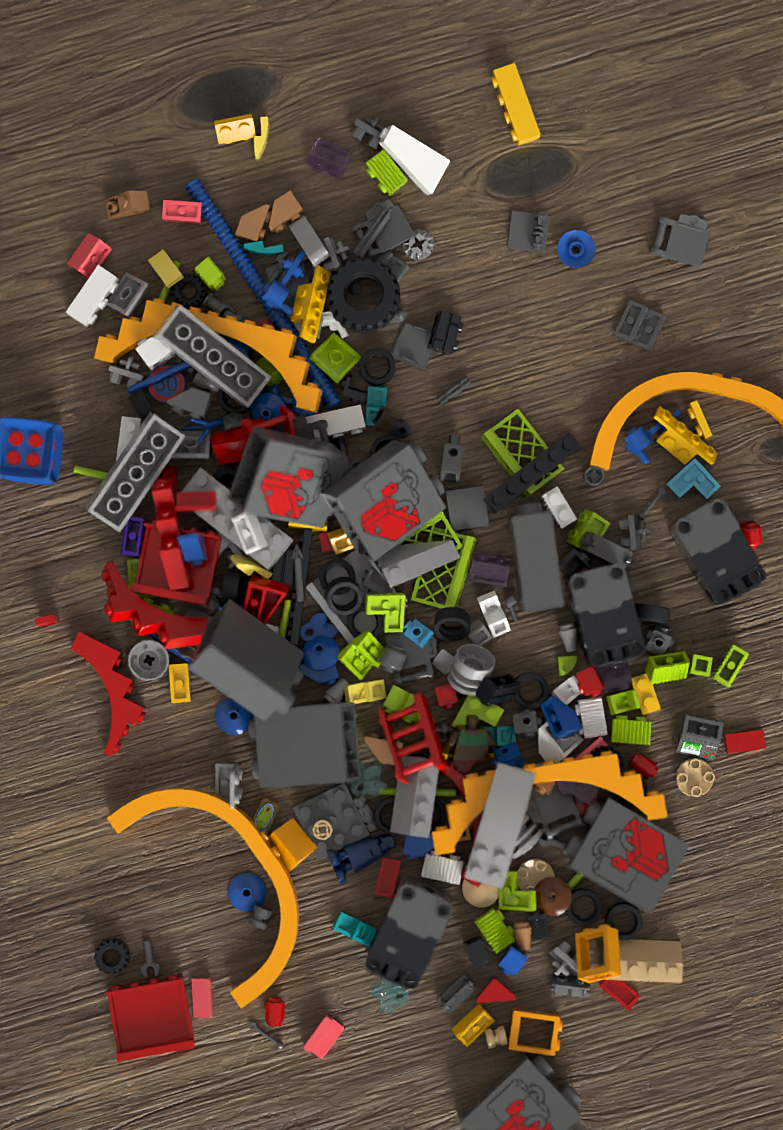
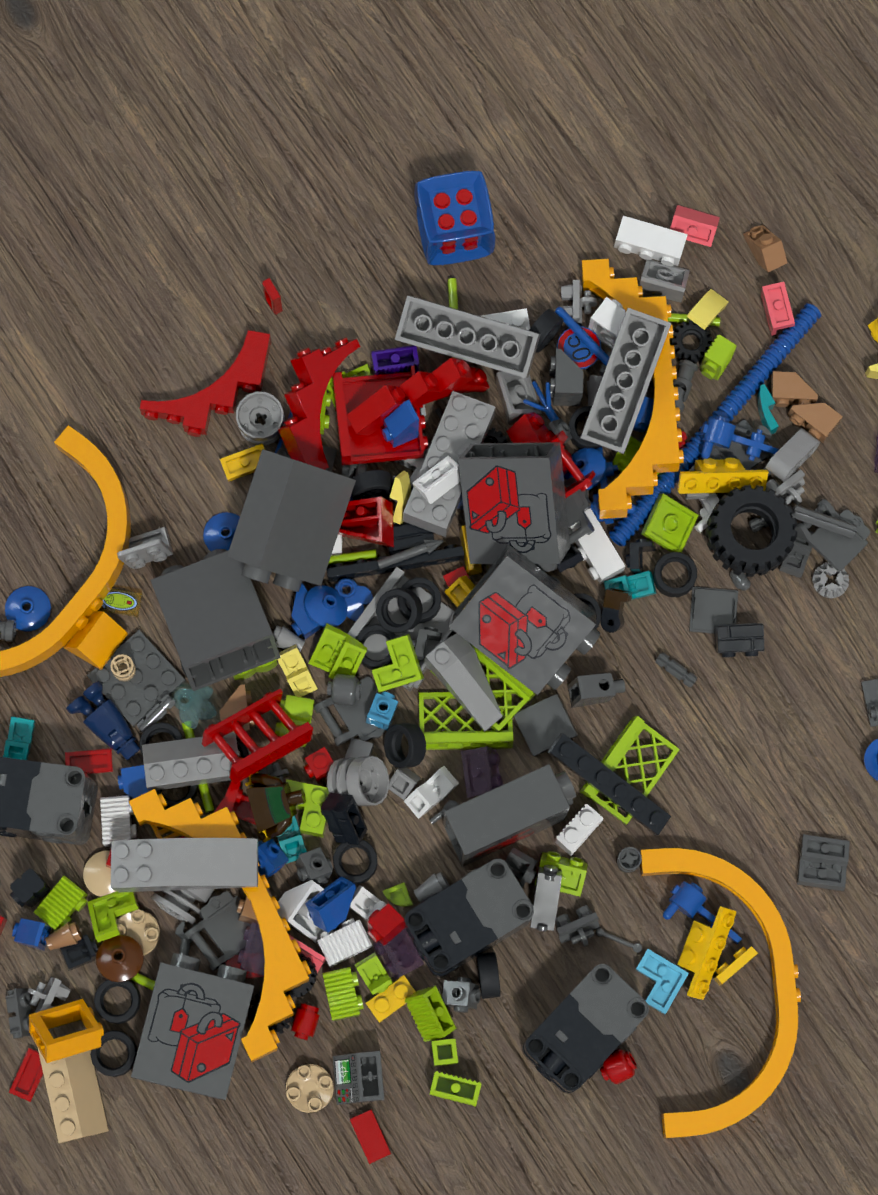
camera: 70 degrees right, 10 degrees down
(196, 501) = (454, 411): red panel -> none

